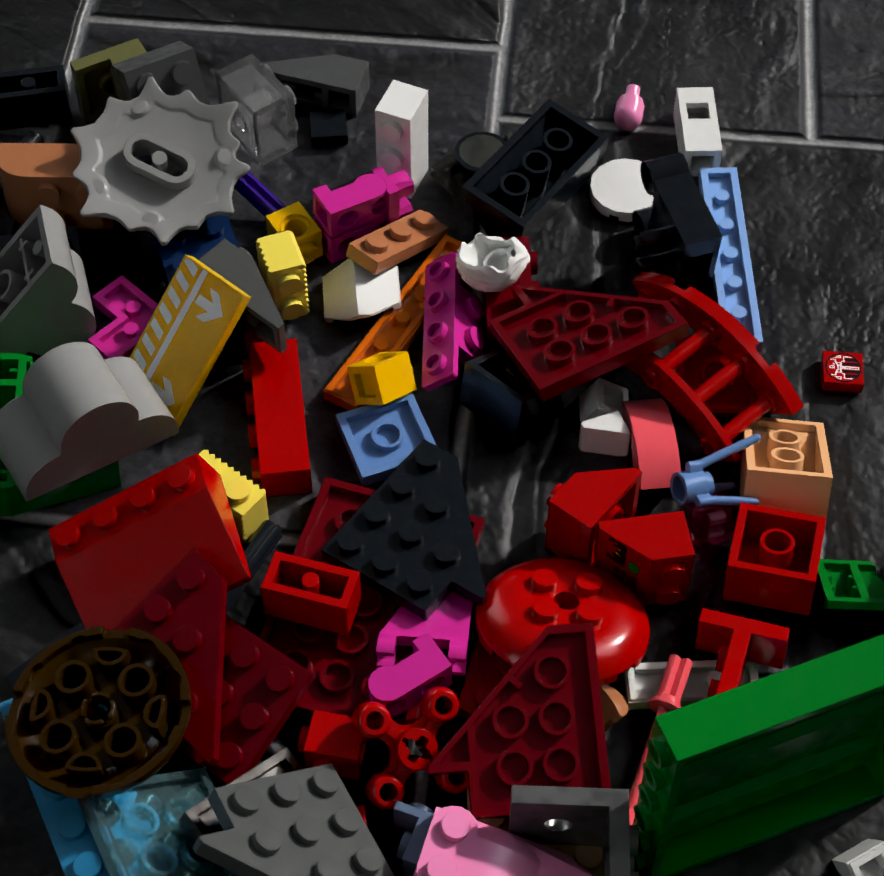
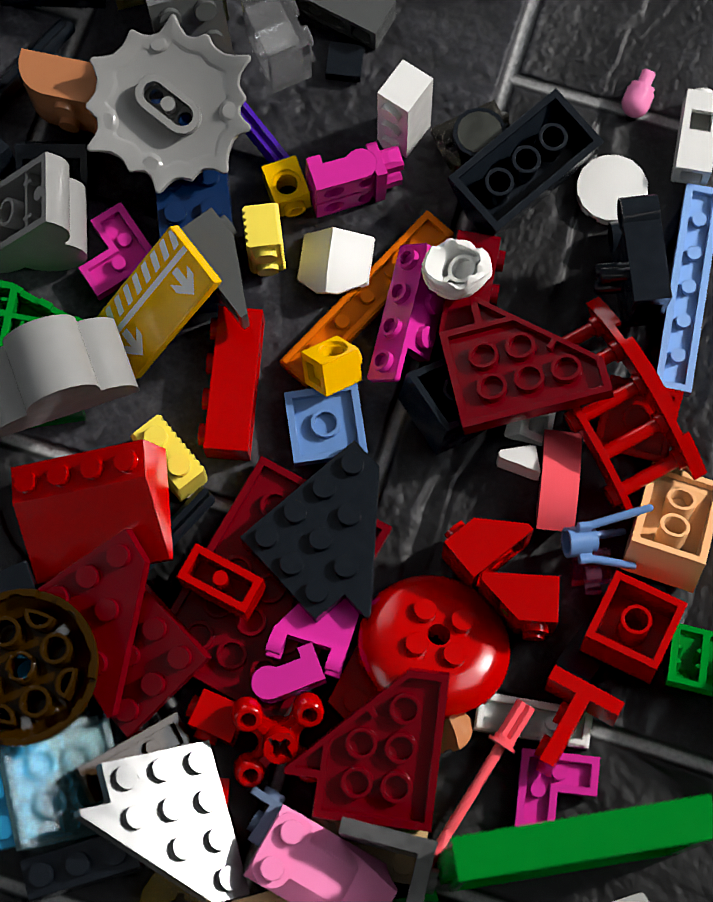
camera: 15 degrees right, 20 degrees up
(396, 242) = (378, 215): nougat plate -> none

